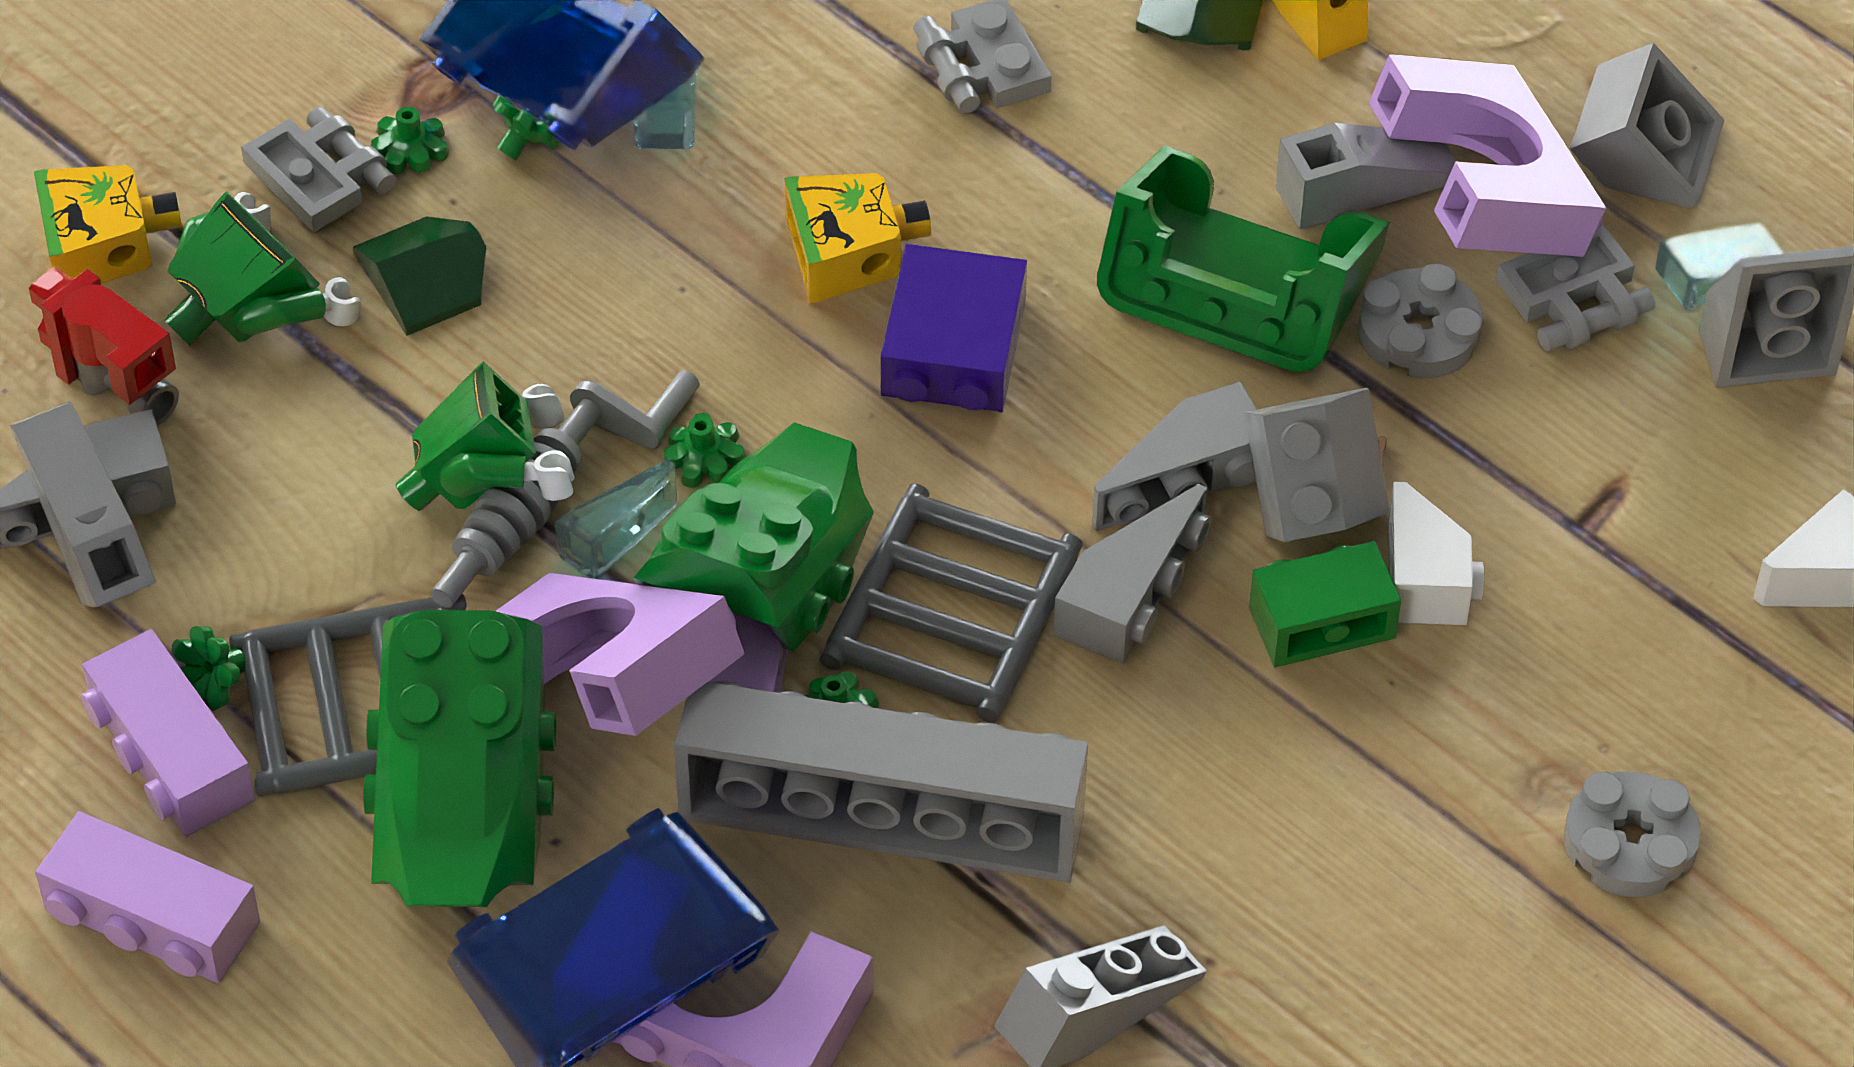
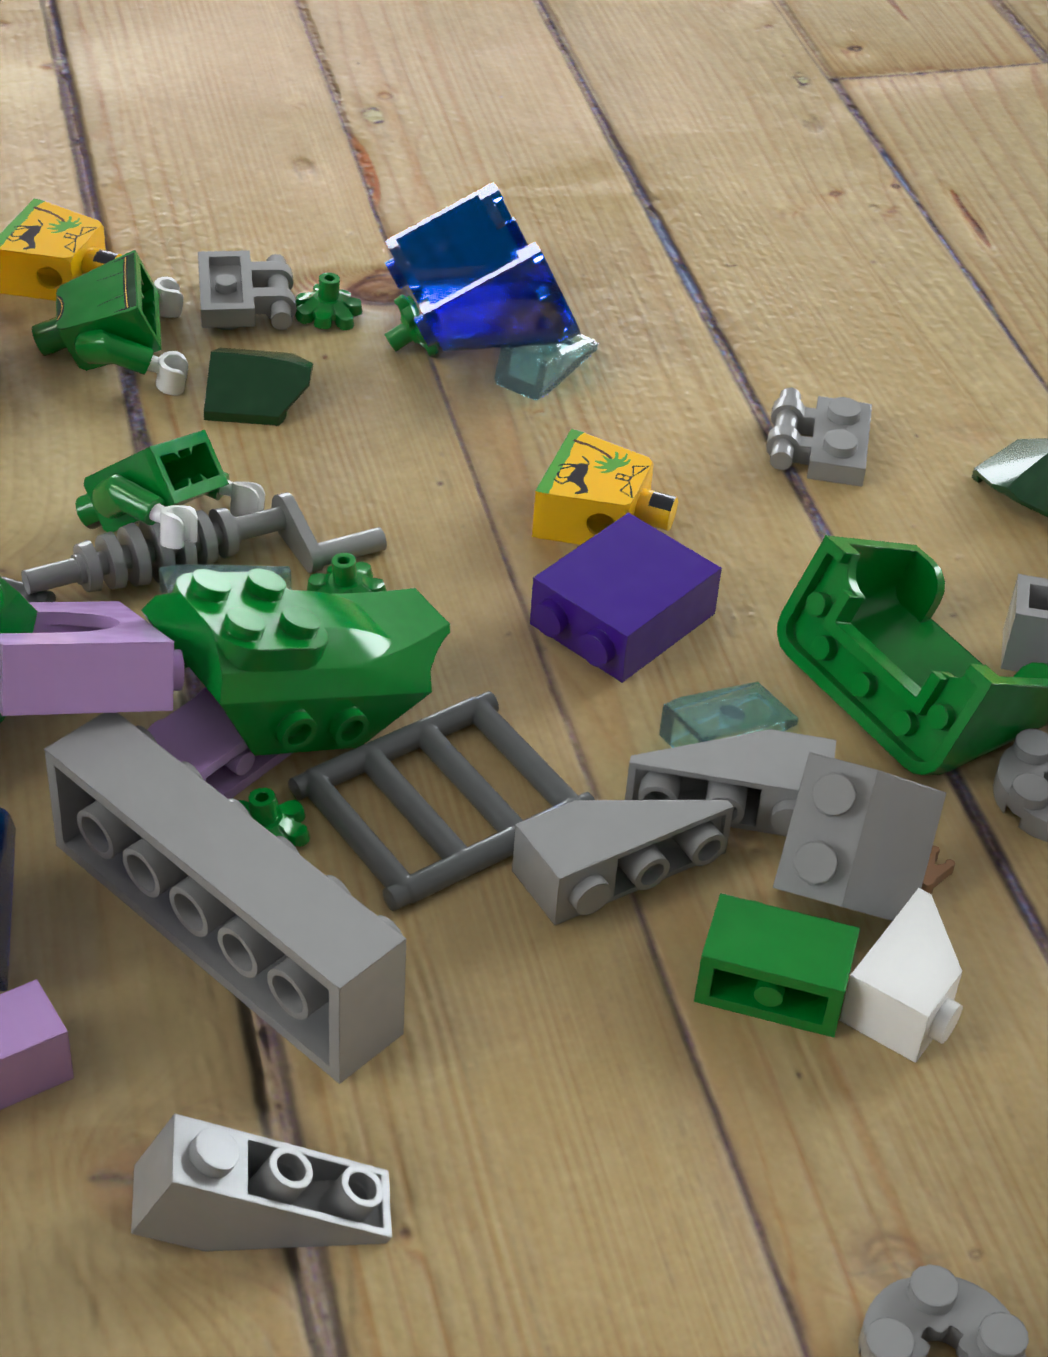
camera: 30 degrees right, 10 degrees down
(1120, 406) = (723, 715): none -> clear light blue slope

